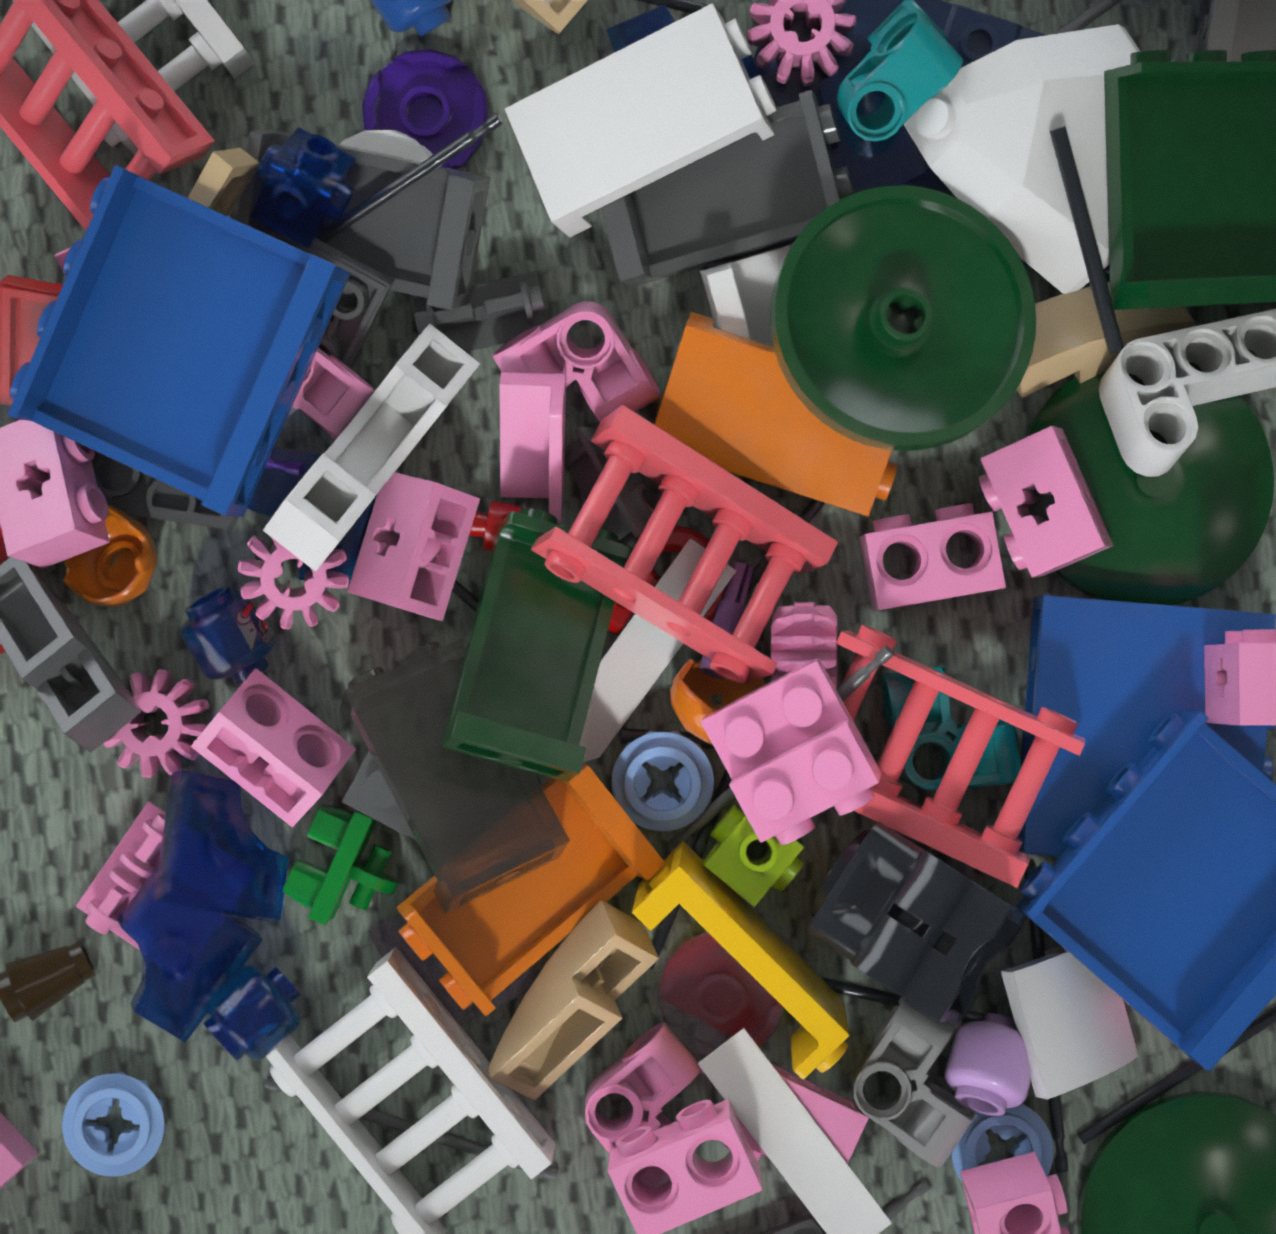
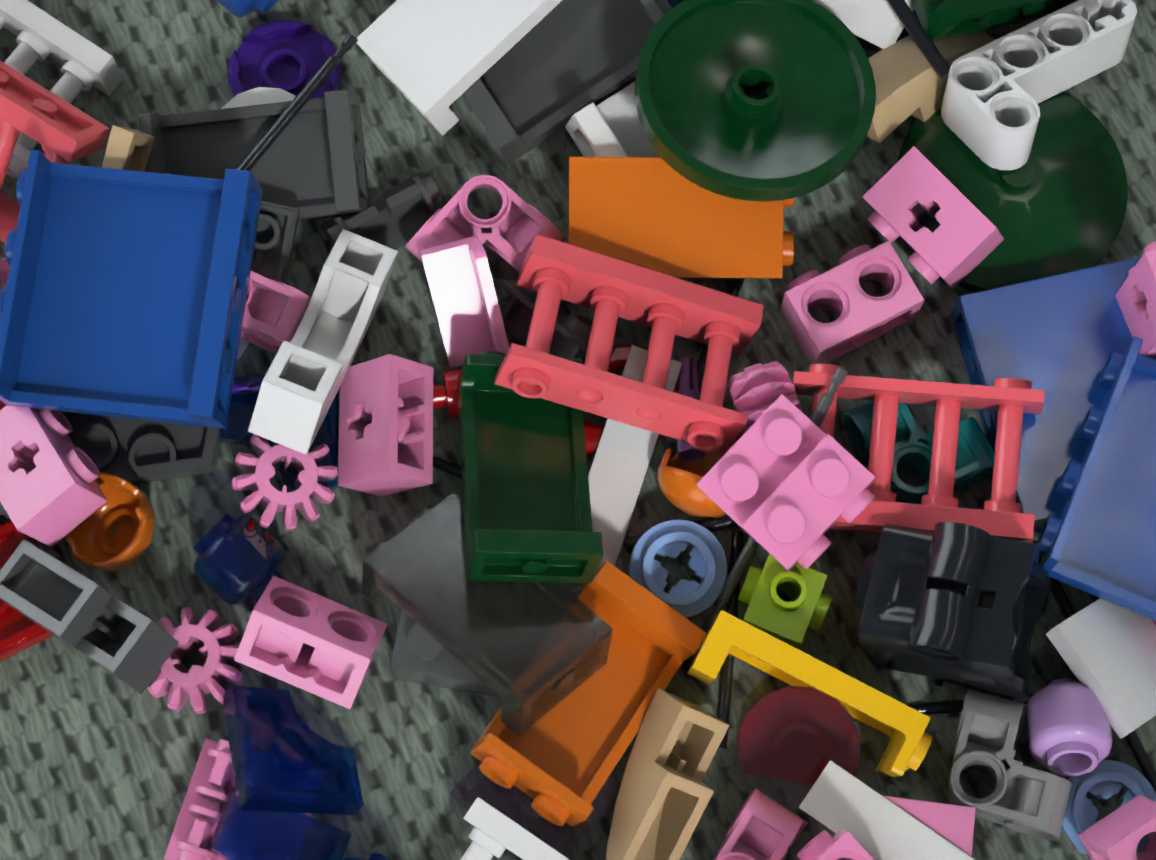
camera: 15 degrees left, 15 degrees down
(303, 186) = (198, 138): clear blue brick -> none
(325, 889) = (397, 764): green hips -> none

